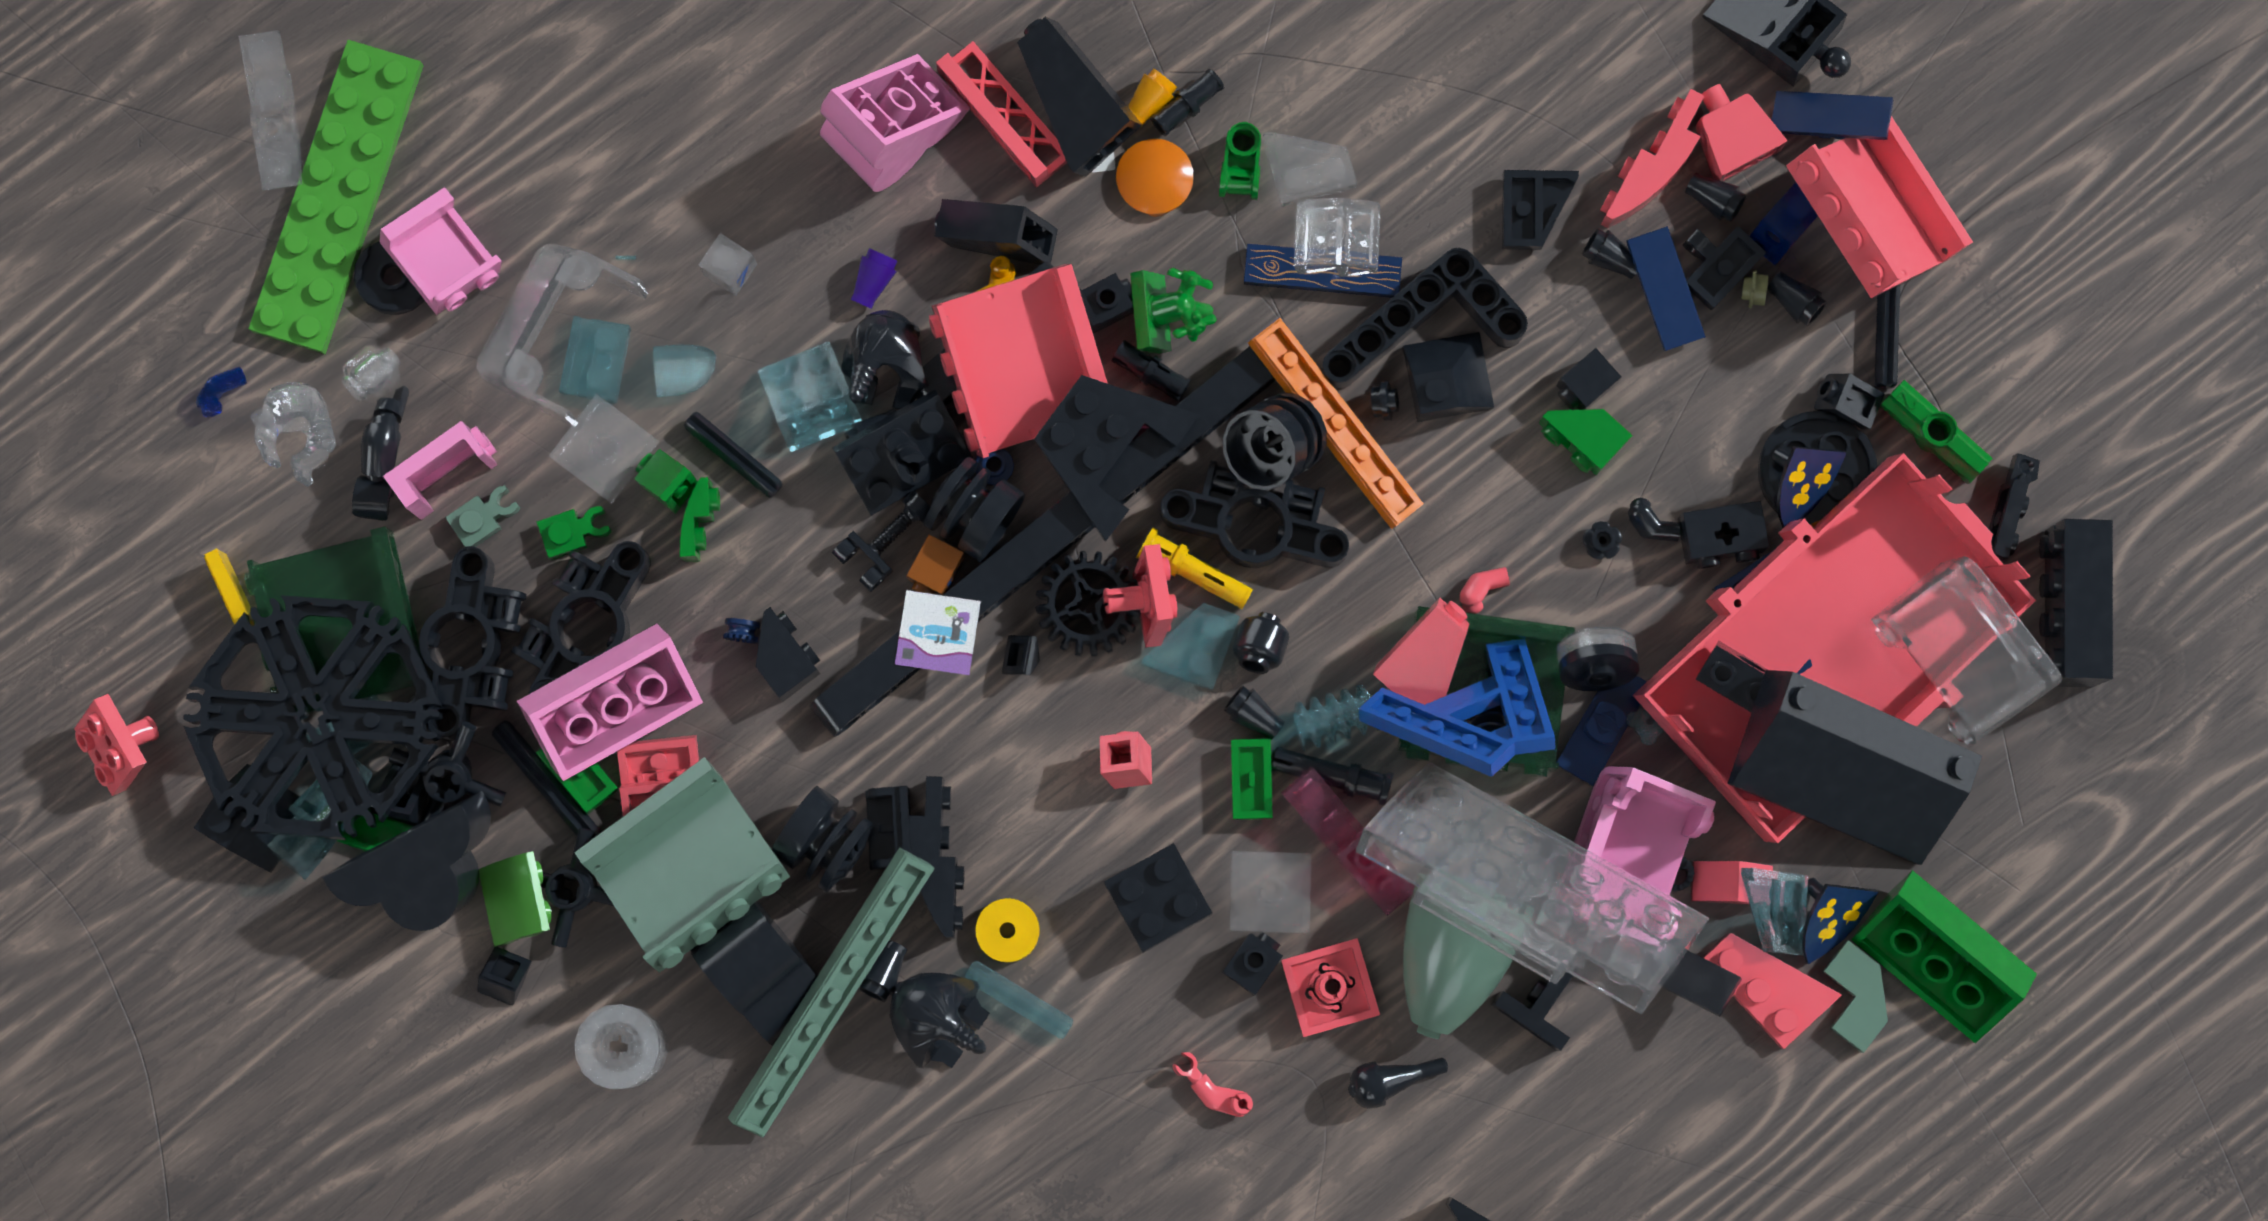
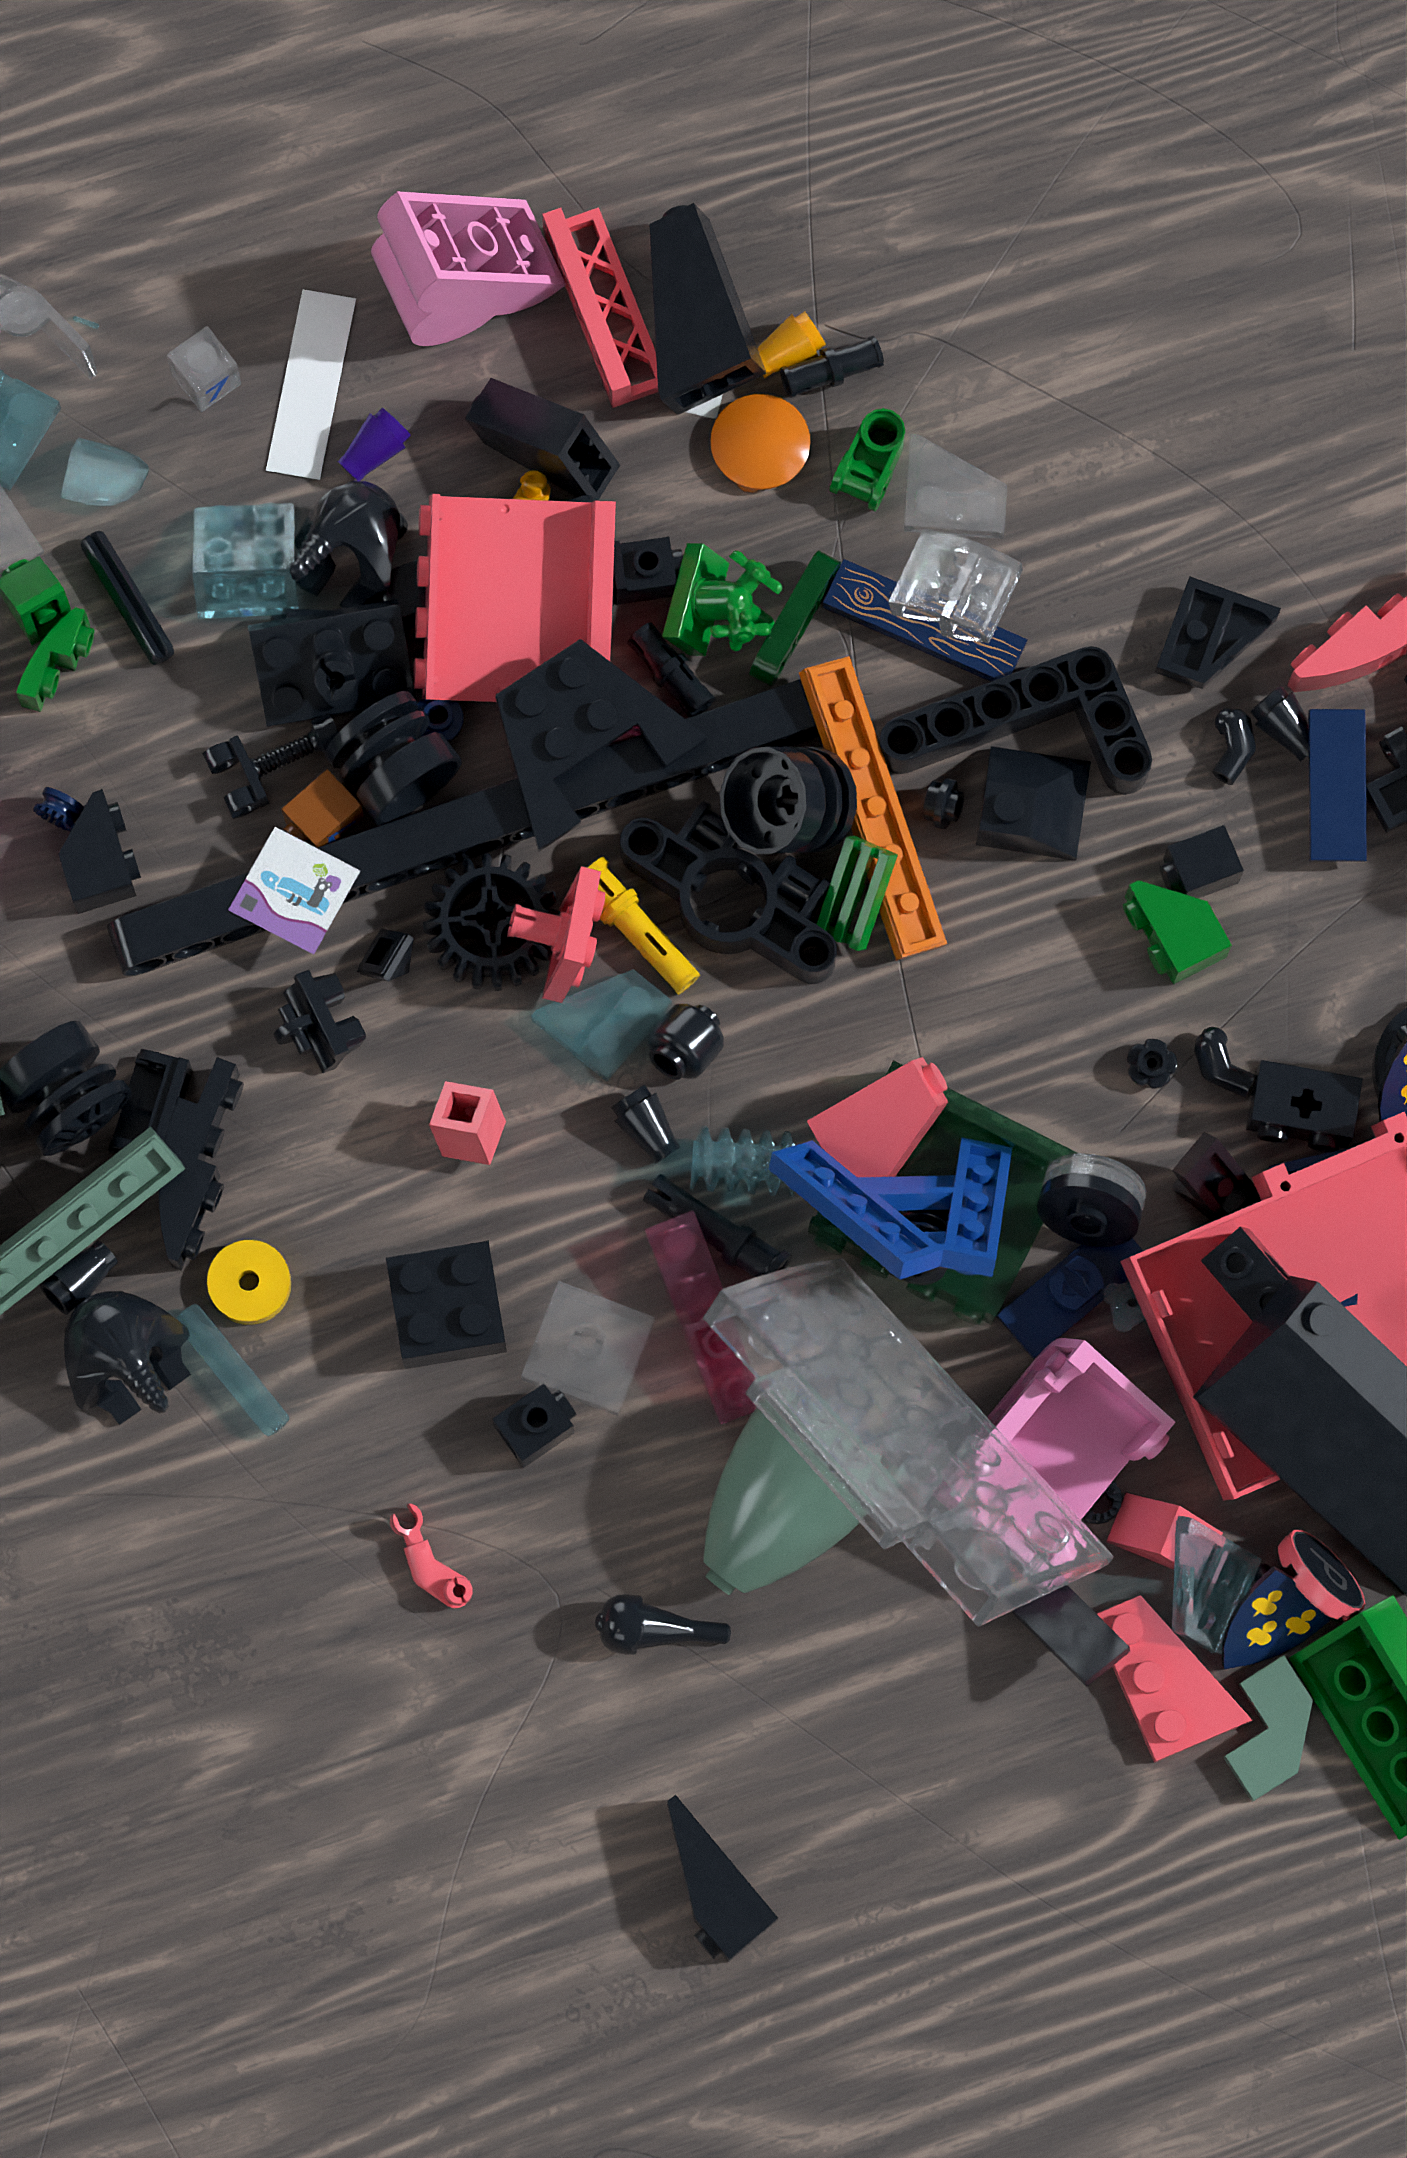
camera: 15 degrees right, 5 degrees down
(809, 247) = (311, 384): none -> white sticker
(984, 725) = (311, 1023): none -> black hips
(1228, 300) = (794, 618): none -> dark green beam
(1251, 779) = (614, 1202): green plate -> none
(1344, 961) = (619, 1488): coral plate -> none
(1361, 488) = (886, 861): none -> green tile
(1478, 587) = (978, 1066): coral arm -> none
(1542, 998) = (876, 1593): black bracket -> none
(1583, 281) = (1240, 743): none -> black arm
(1679, 612) = (1213, 1180): none -> black slope
(1860, 875) = (1321, 1576): none -> tile

